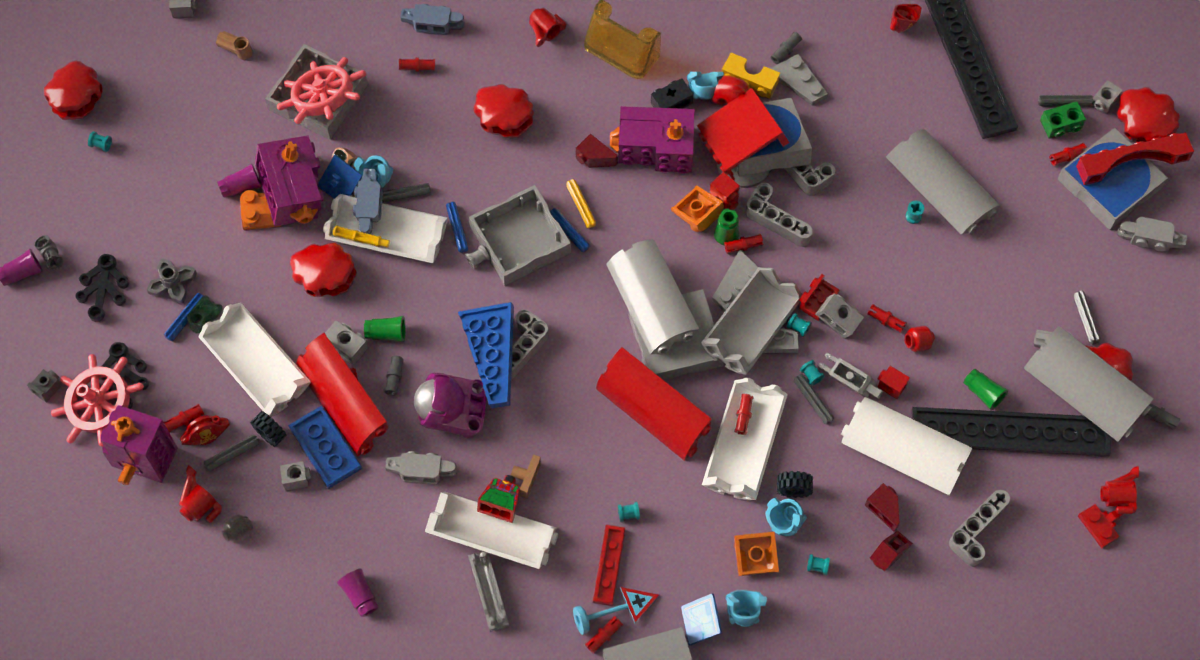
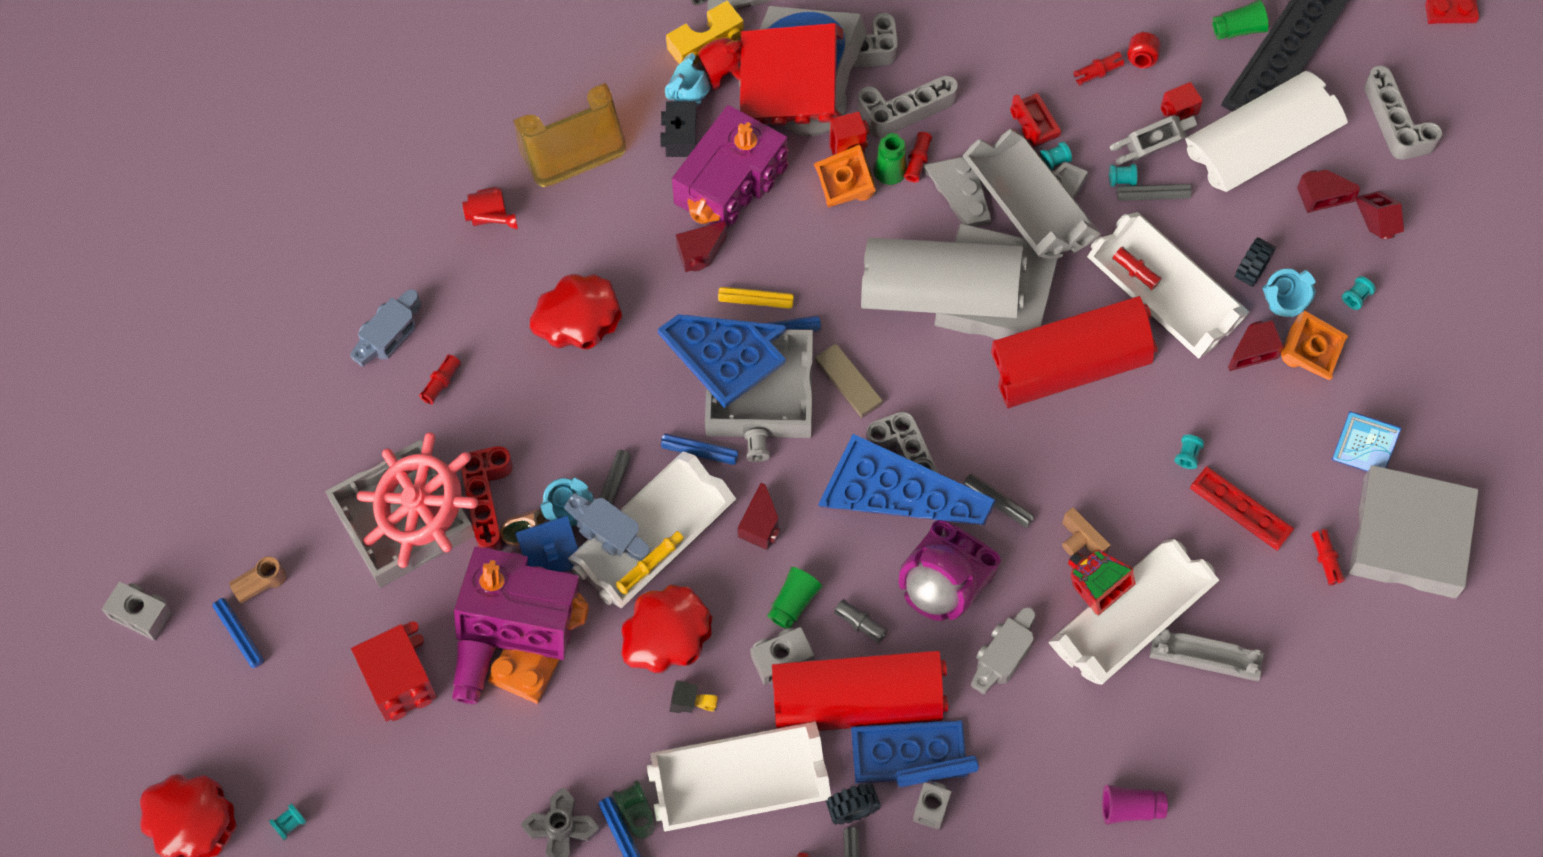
camera: 60 degrees left, 0 degrees up
(198, 54) = (238, 633): none -> blue axle
(214, 142) = (395, 671): none -> red container
(287, 305) = (685, 698): none -> pearl dark grey piece
(316, 466) = (937, 771): none -> blue axle
(332, 140) = (480, 480): none -> red beam
(429, 283) = (760, 520): none -> dark red slope
(520, 201) = (725, 352): none -> blue wing
(525, 413) = (1003, 502): none -> dark grey axle
(556, 286) = (848, 380): none -> dark tan tile
(636, 602) = (1302, 501): medium azure piece -> none
(733, 515) = (1257, 346): none -> dark red slope
(745, 607) = (1374, 390): medium azure helmet -> none
(829, 314) = (1072, 108): light grey brick -> none

